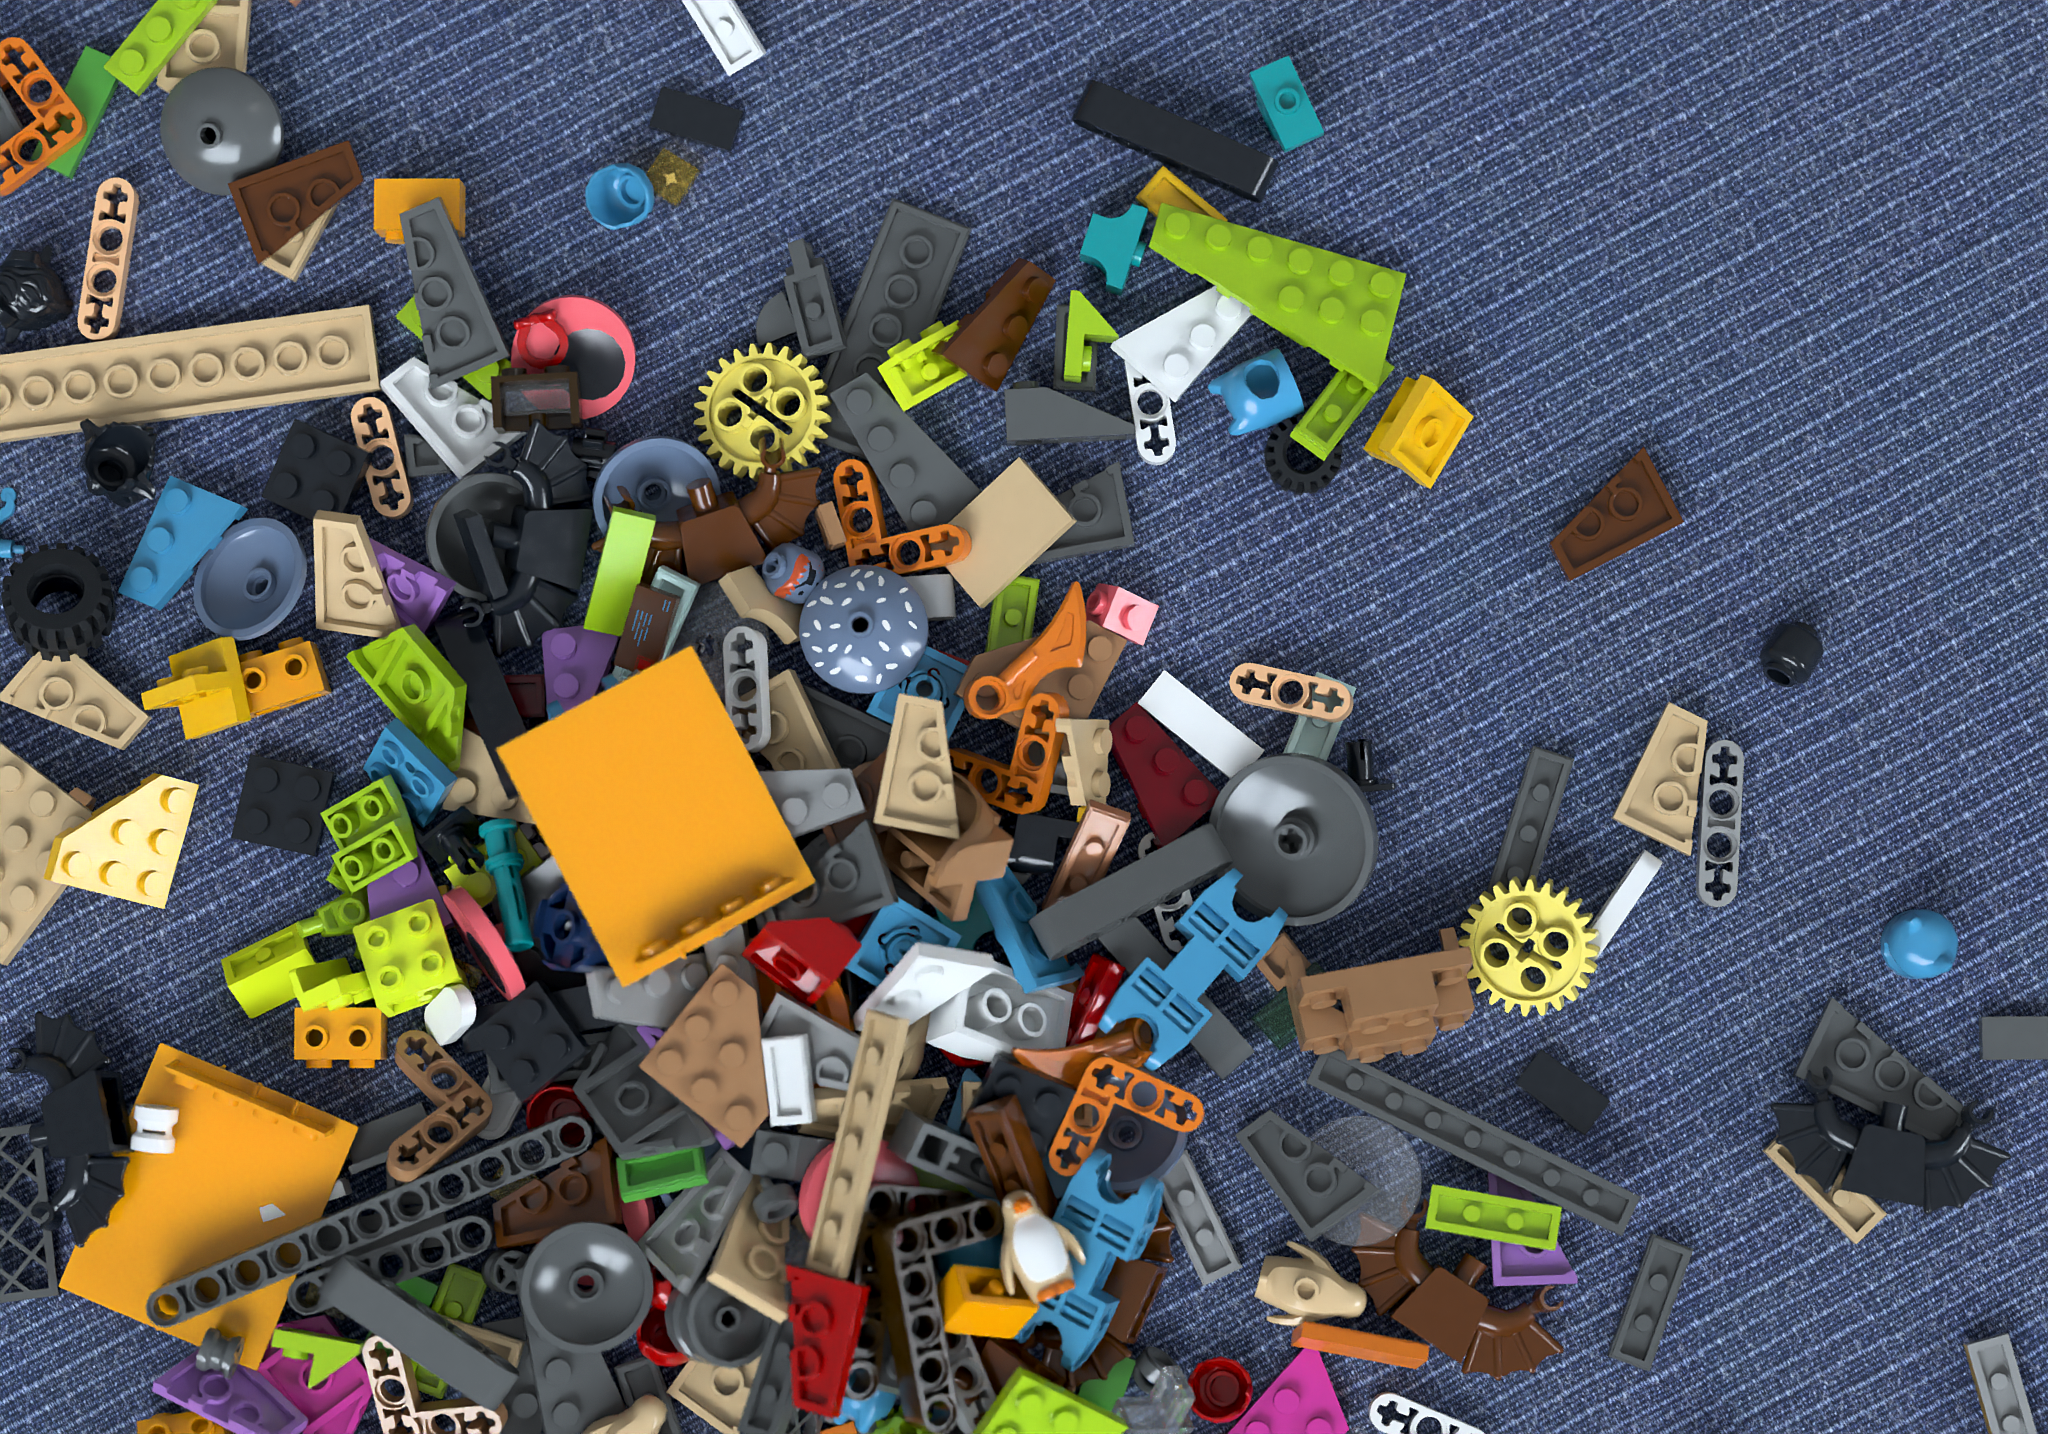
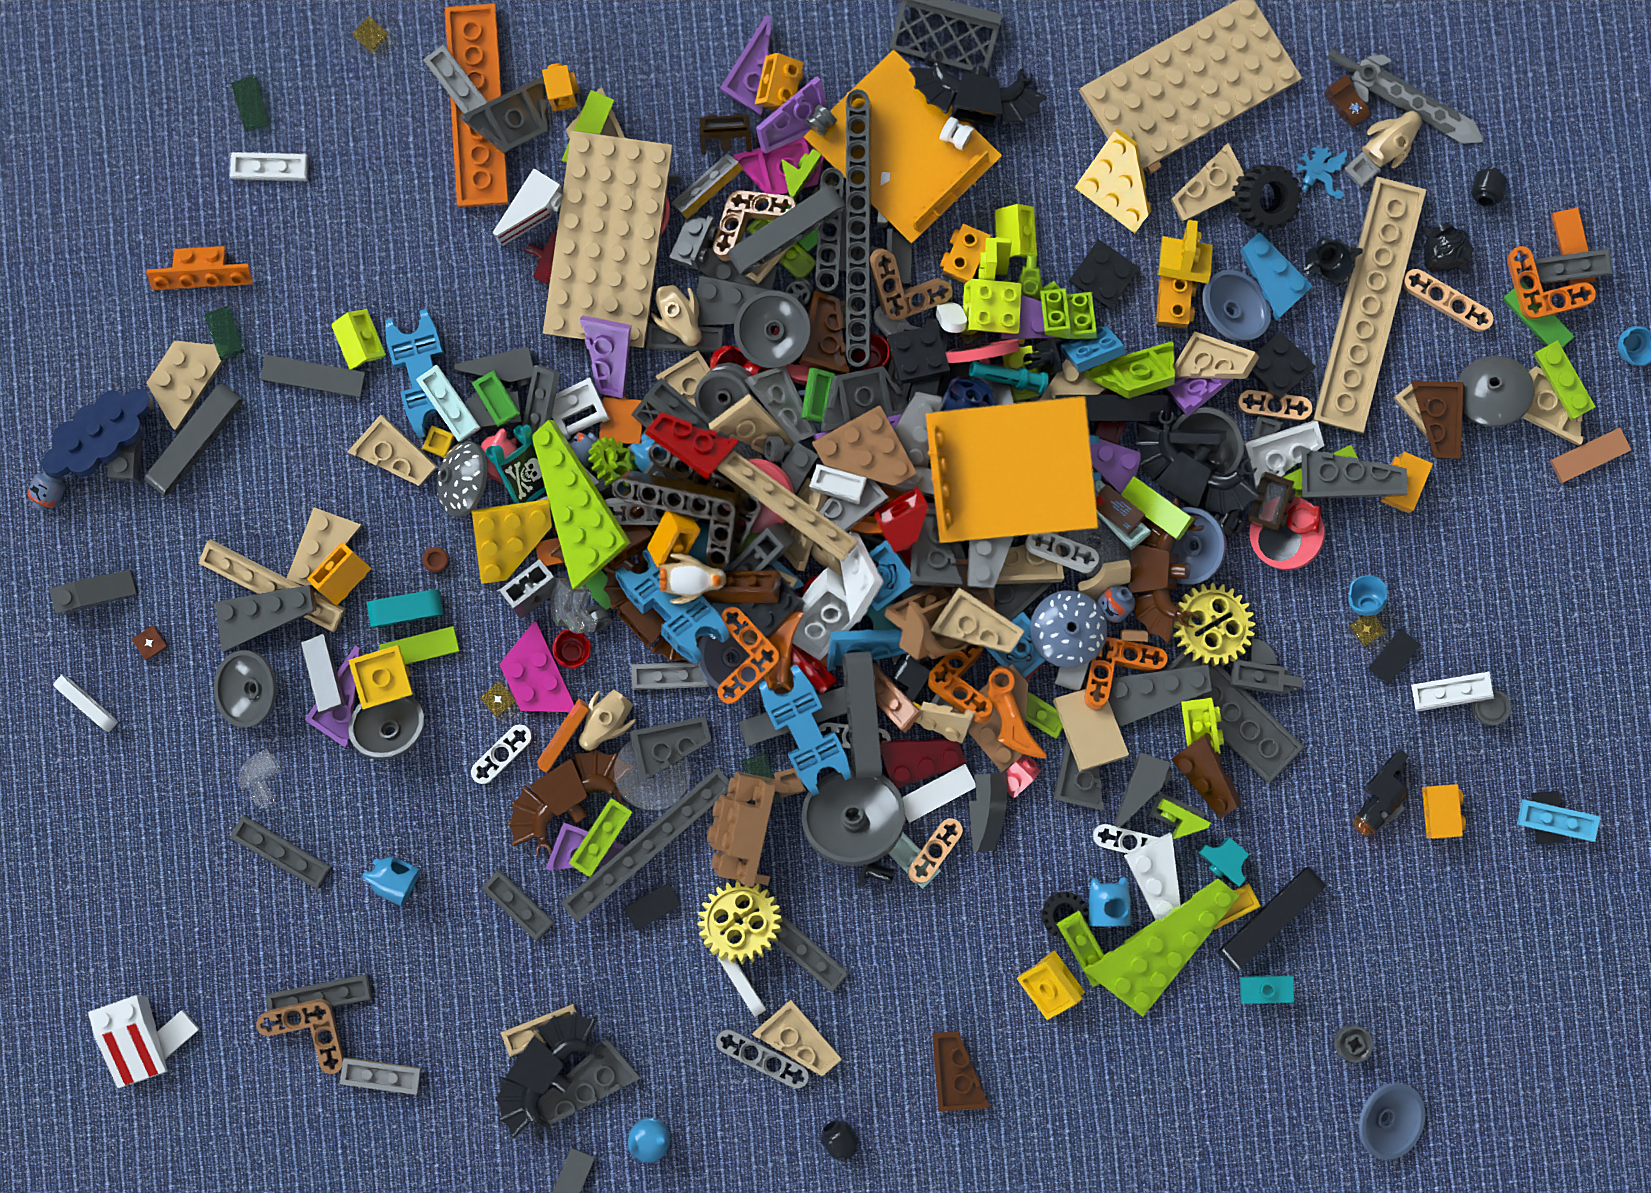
camera: 110 degrees right, 0 degrees up
(915, 44) = (1386, 796): none -> black plate
(1194, 637) = (988, 811): none -> dark grey slope

